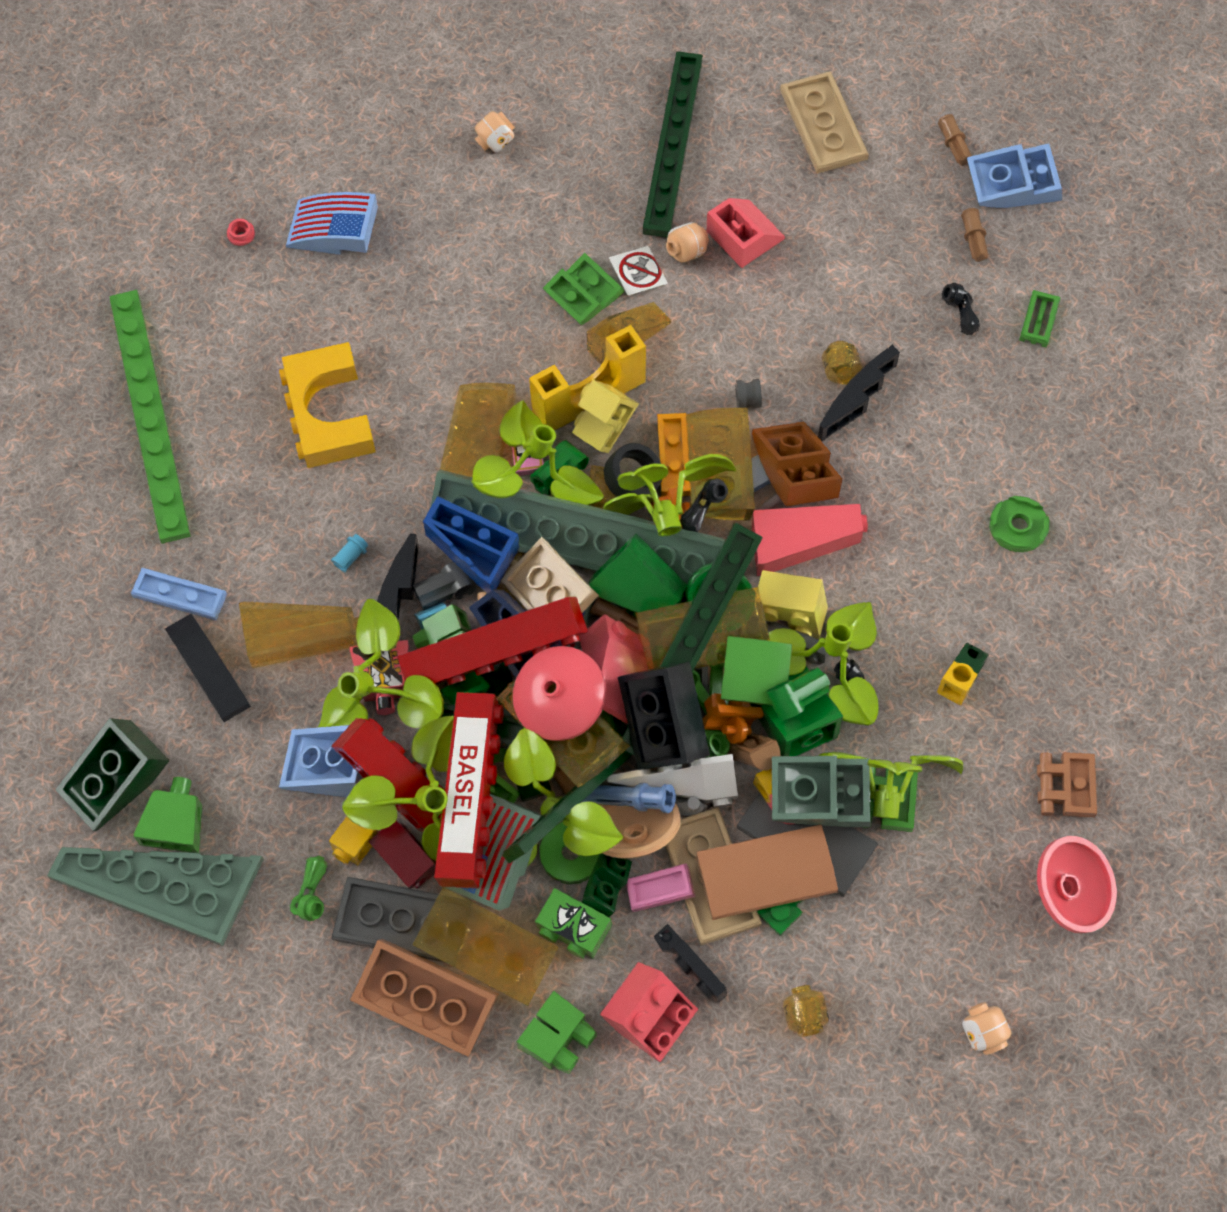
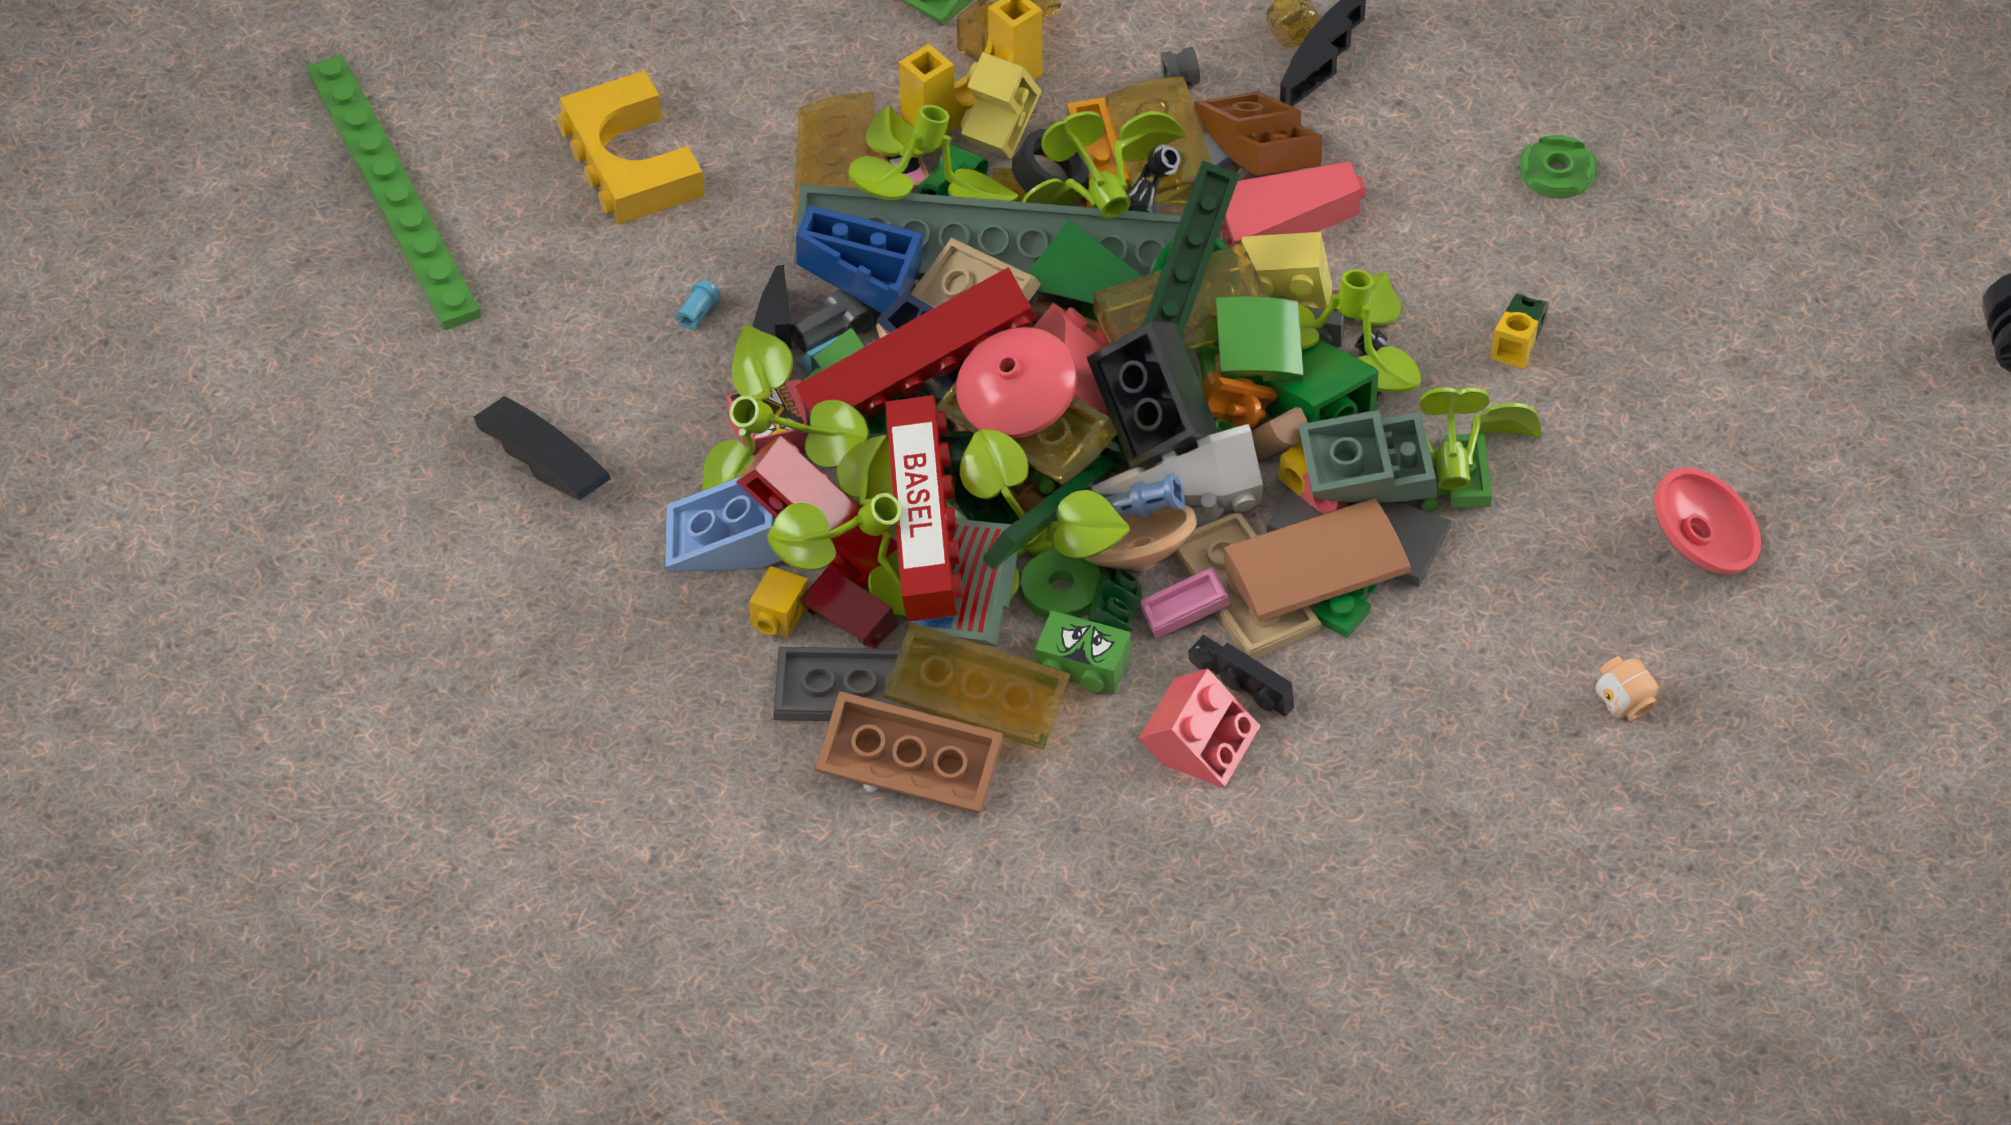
camera: 10 degrees left, 15 degrees down
(111, 772) = (442, 576): dark green slope -> none
(171, 819) = (535, 616): bright green torso -> none
(174, 888) = (546, 688): sand green wing -> none
(179, 594) = (481, 379): light blue tile -> none
(295, 631) = (648, 394): clear yellow slope -> none
(309, 905) = (736, 681): bright green piece -> none
(553, 1031) = (1082, 767): bright green hips -> none
(792, 695) = (1313, 354): green piece -> none
(806, 1011) = (1397, 704): clear yellow head -> none
(1078, 784) = (1688, 425): nougat plate -> none

